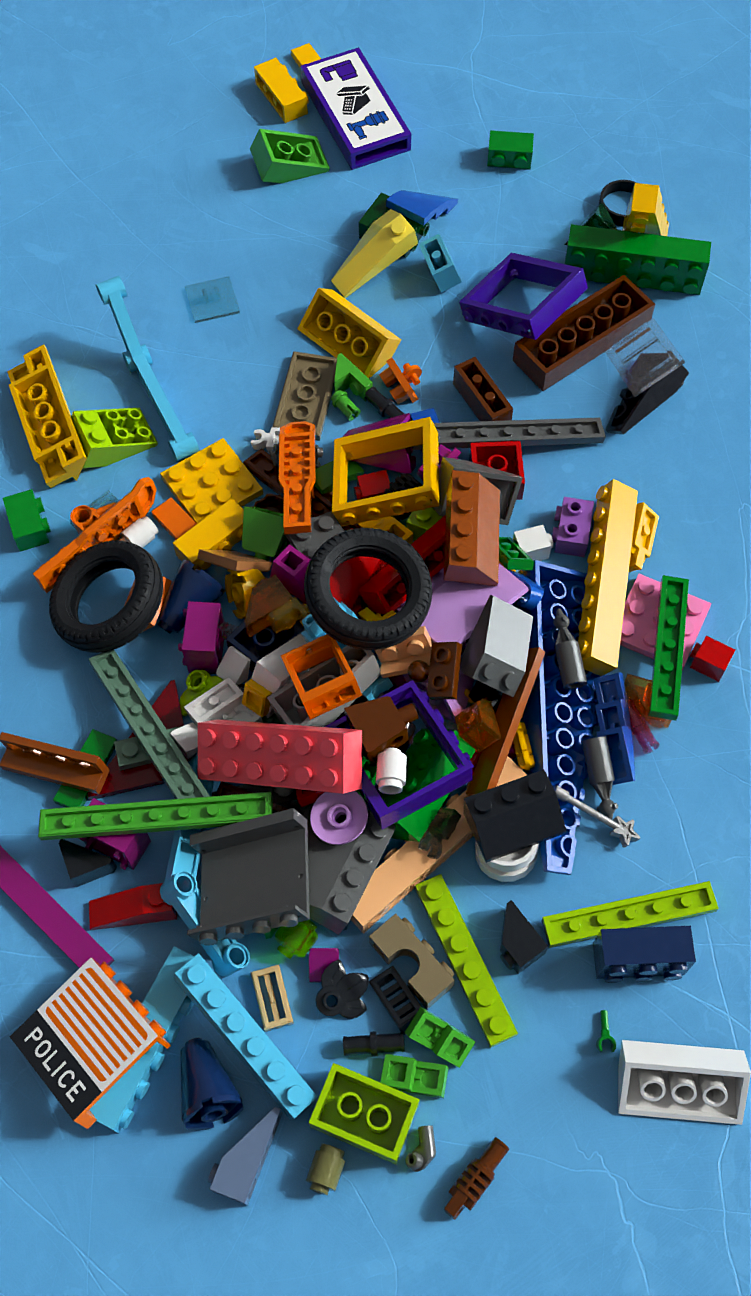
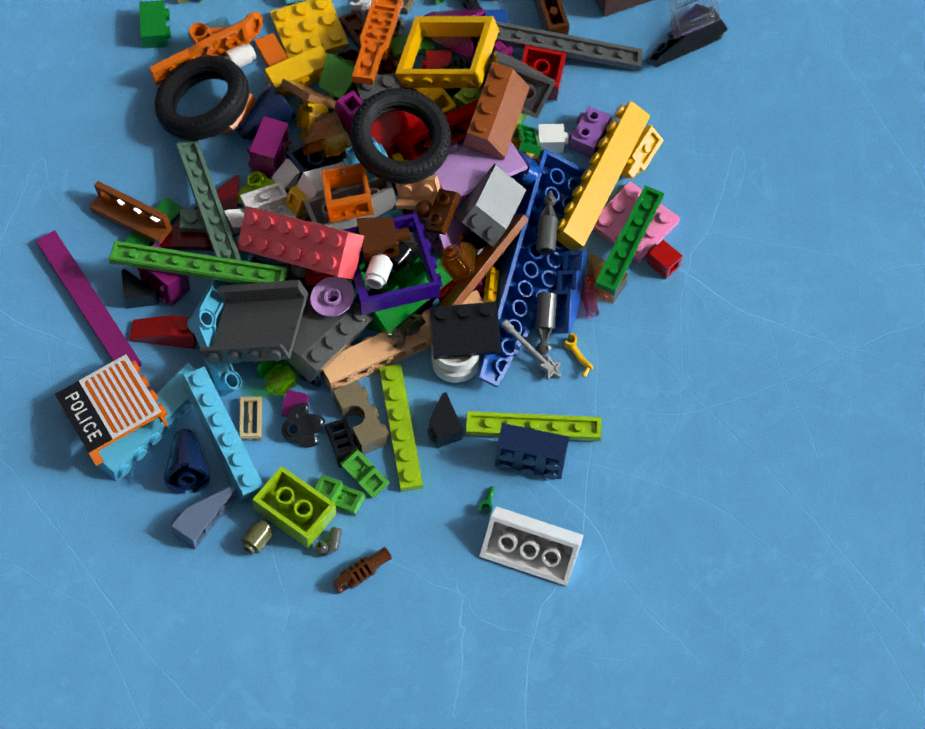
camera: 10 degrees right, 0 degrees up
(373, 1044) = (315, 466): black pin -> none
(651, 805) = (572, 346): none -> yellow piece

